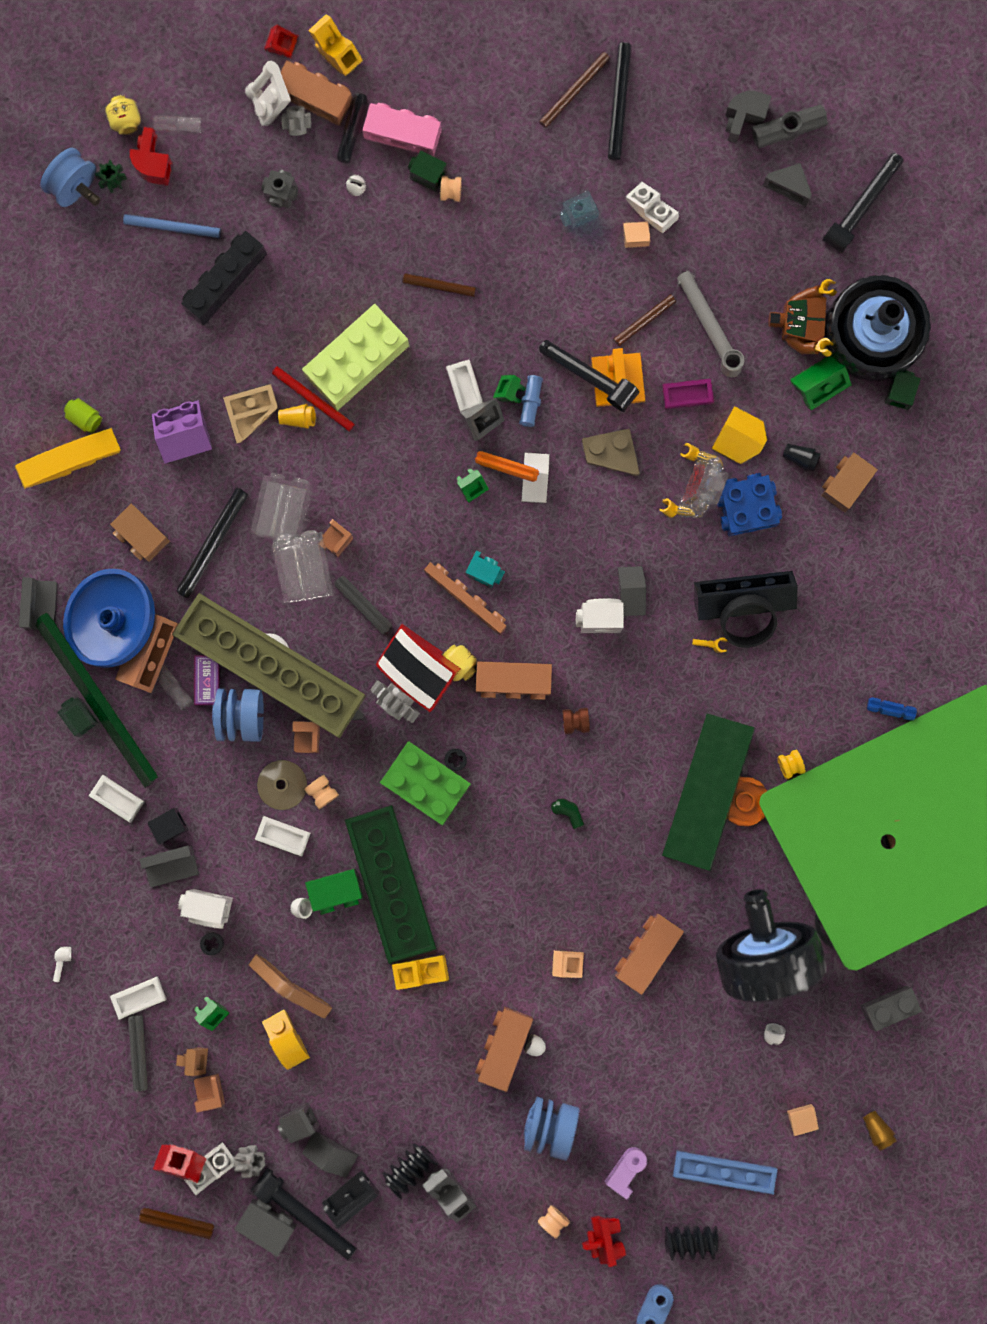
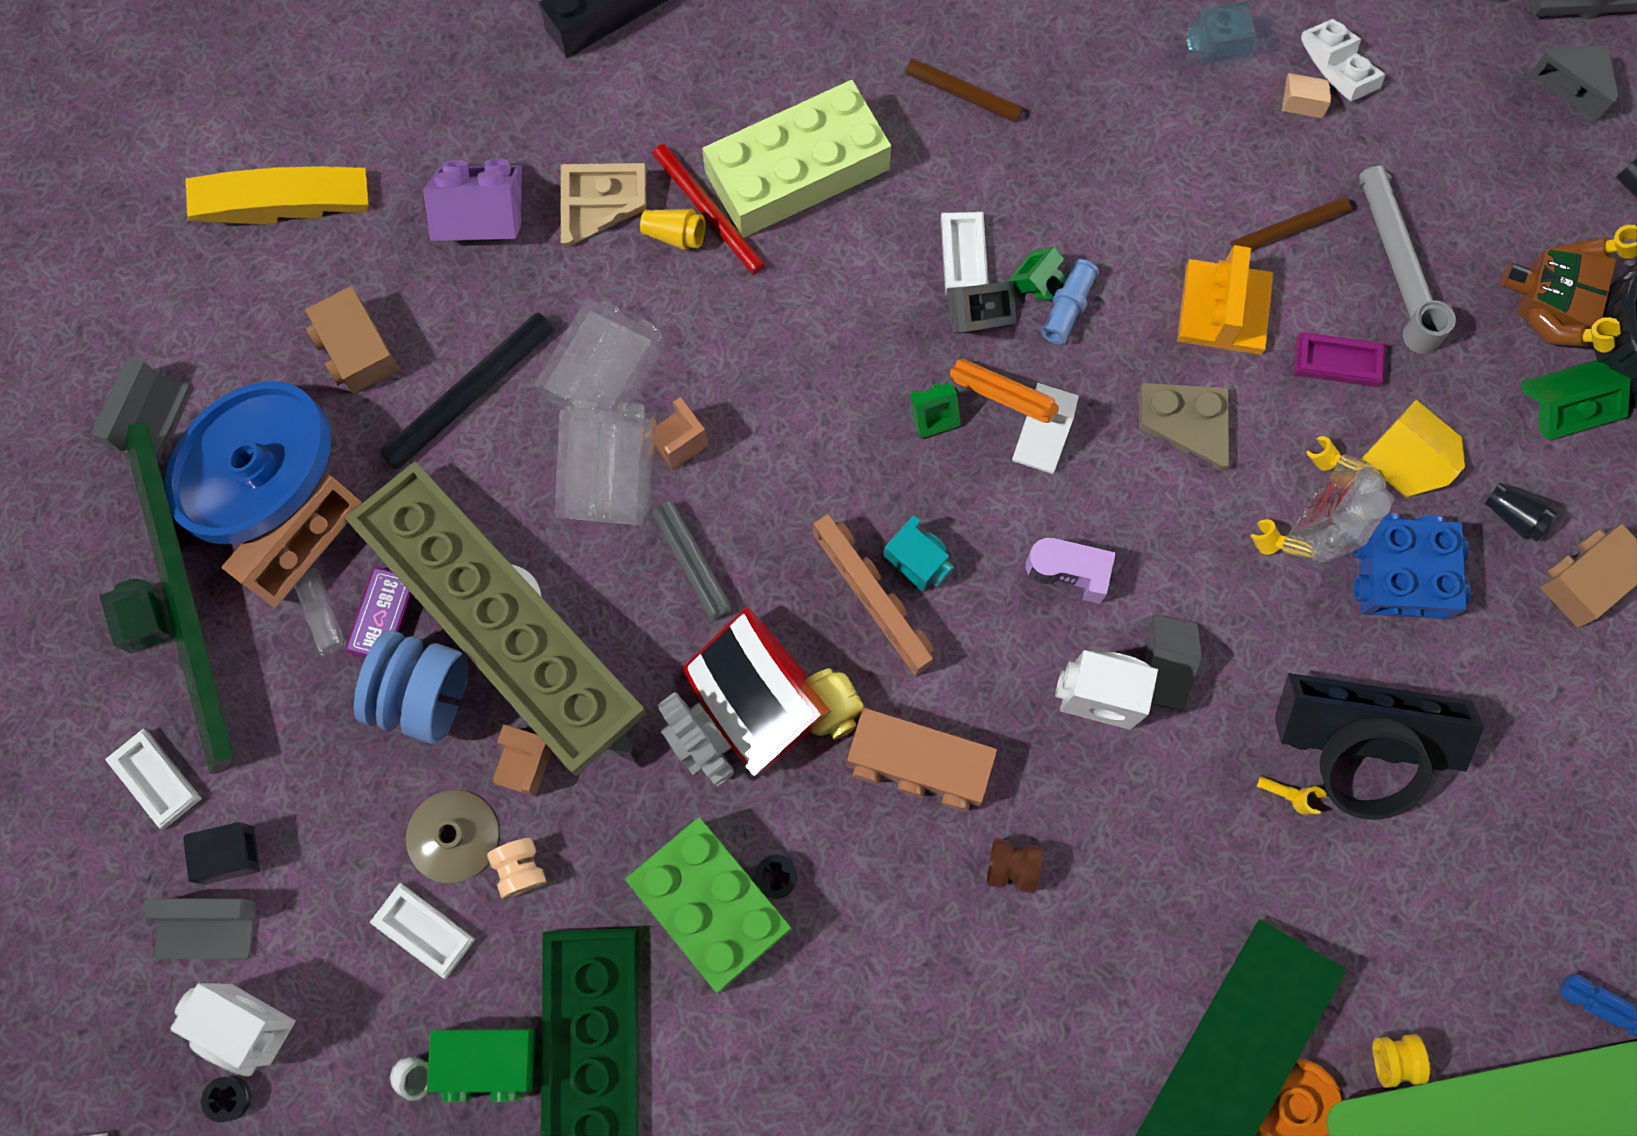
camera: 15 degrees right, 10 degrees down
(82, 415) = (325, 136): lime brick -> none
(567, 552) = (1071, 564): none -> lavender leg
(569, 809) = (961, 1030): dark green arm -> none
(620, 393) = (1228, 318): black piece -> none

